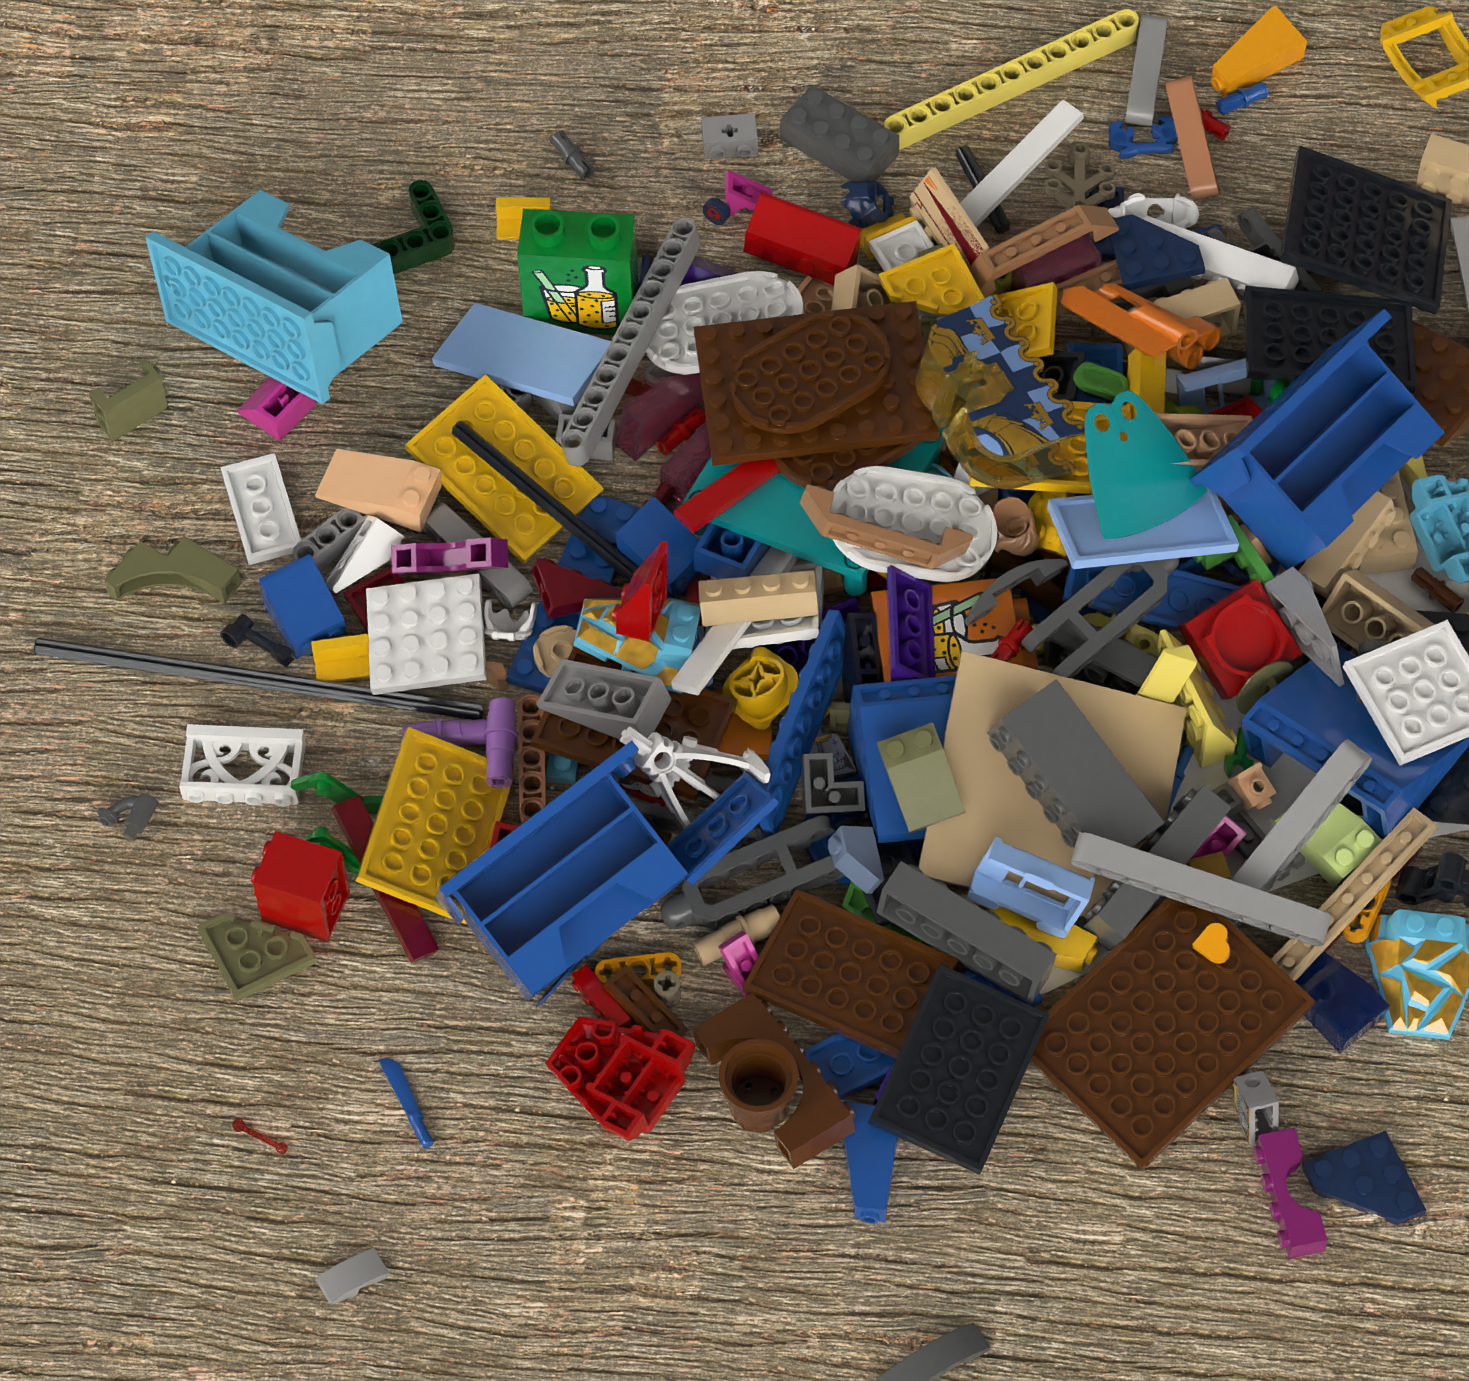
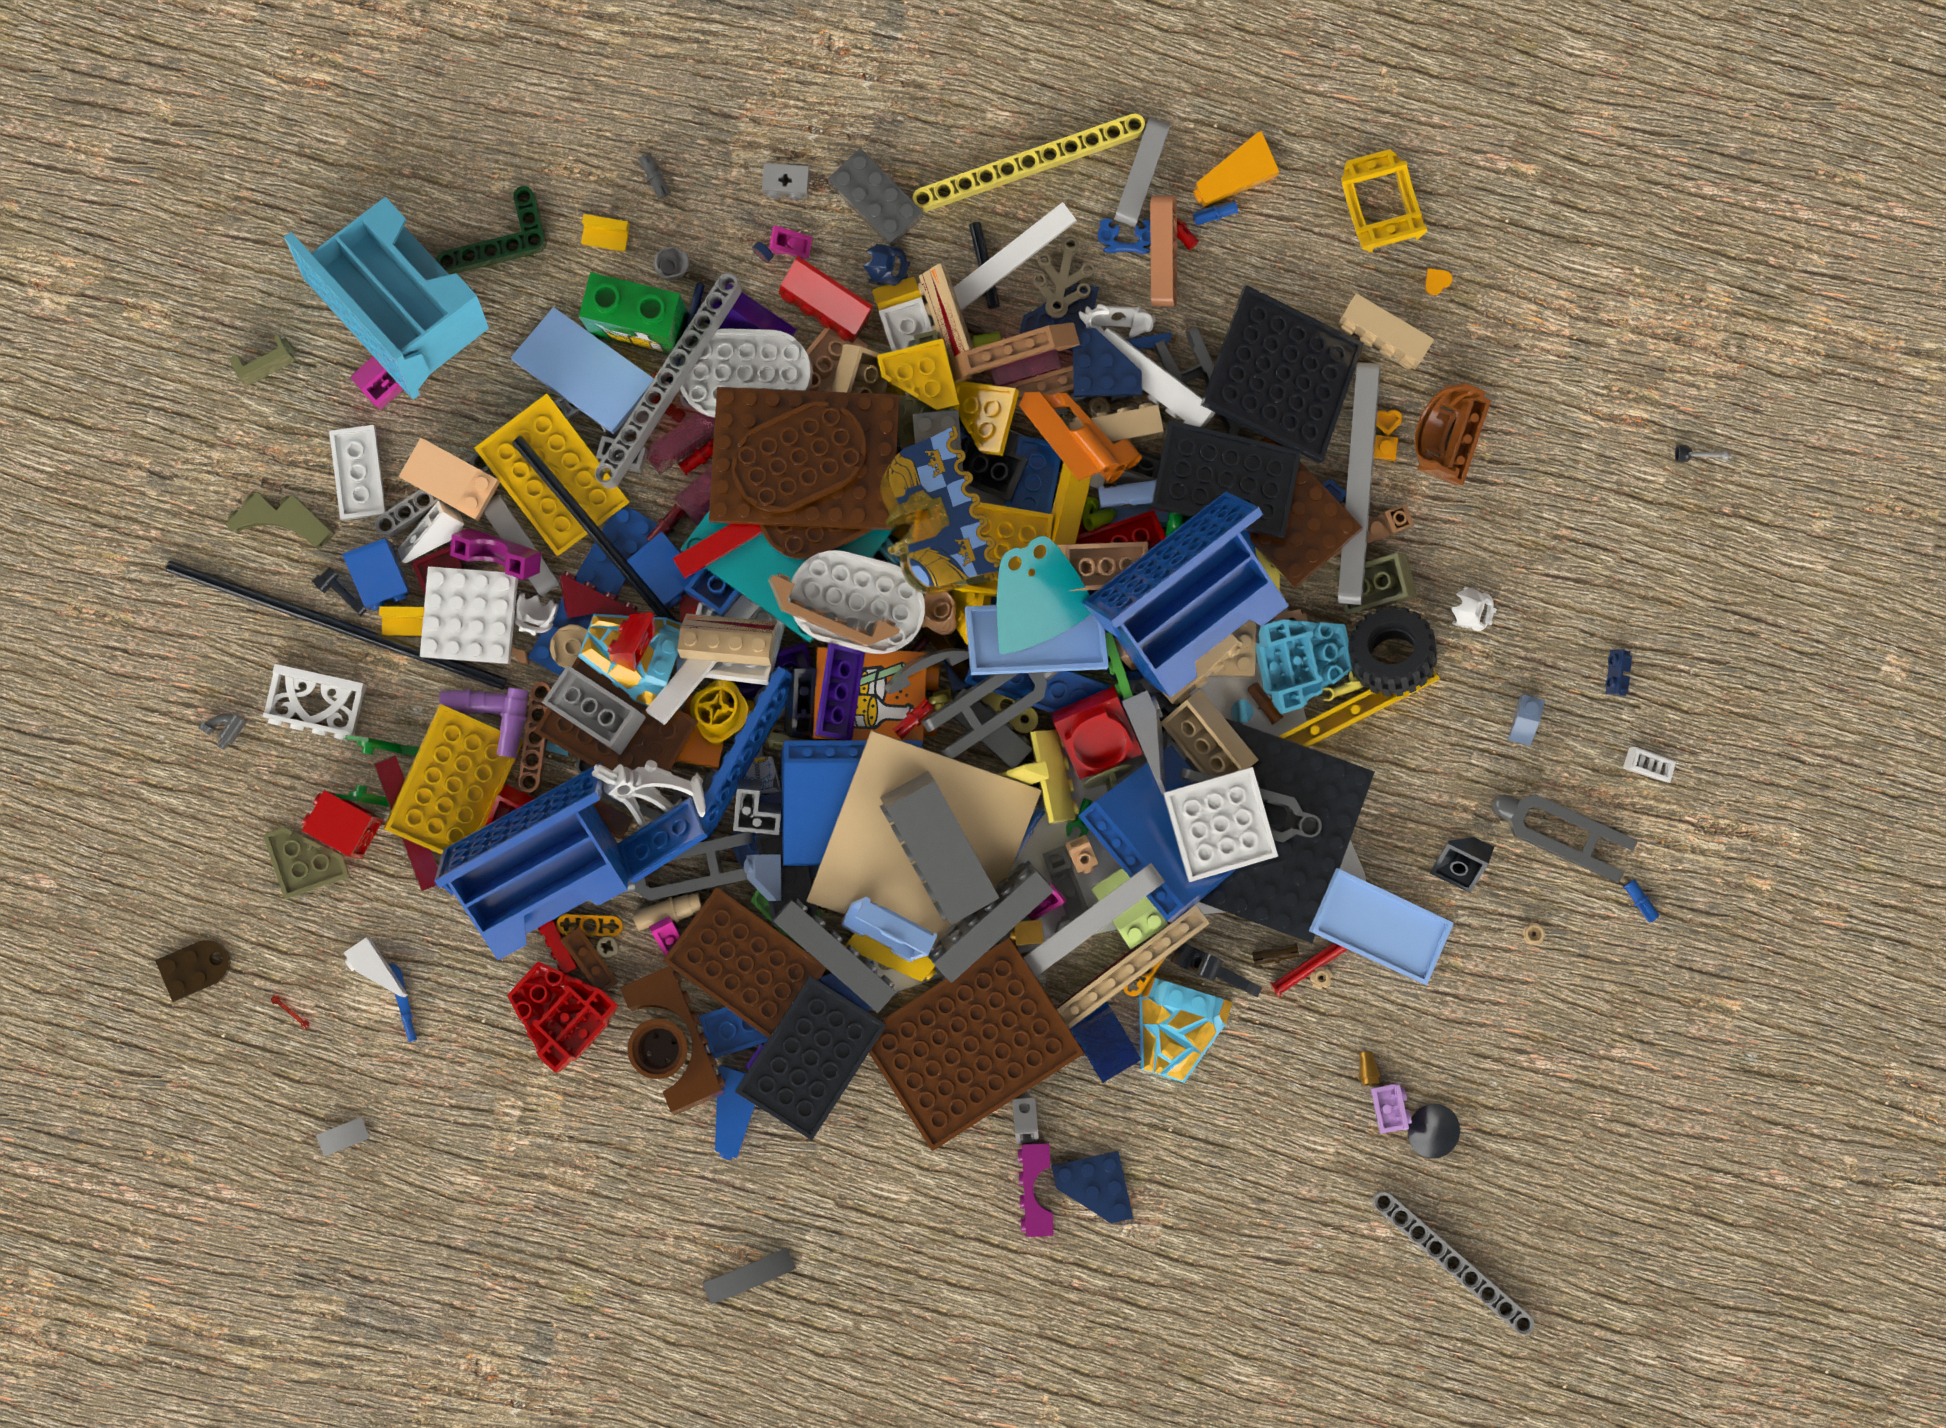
camera: 10 degrees right, 25 degrees up
(123, 1104) = (192, 968): none -> dark brown plate
(364, 1060) = (369, 962): none -> white slope
(921, 777) = (820, 831): olive slope -> none
(1100, 380) = (1035, 486): bright green tile -> none
(1200, 889) = (1015, 956): light grey beam -> none
(1213, 943) = (1018, 994): light orange tile -> none
(1412, 598) = (1242, 711): none -> medium azure plate

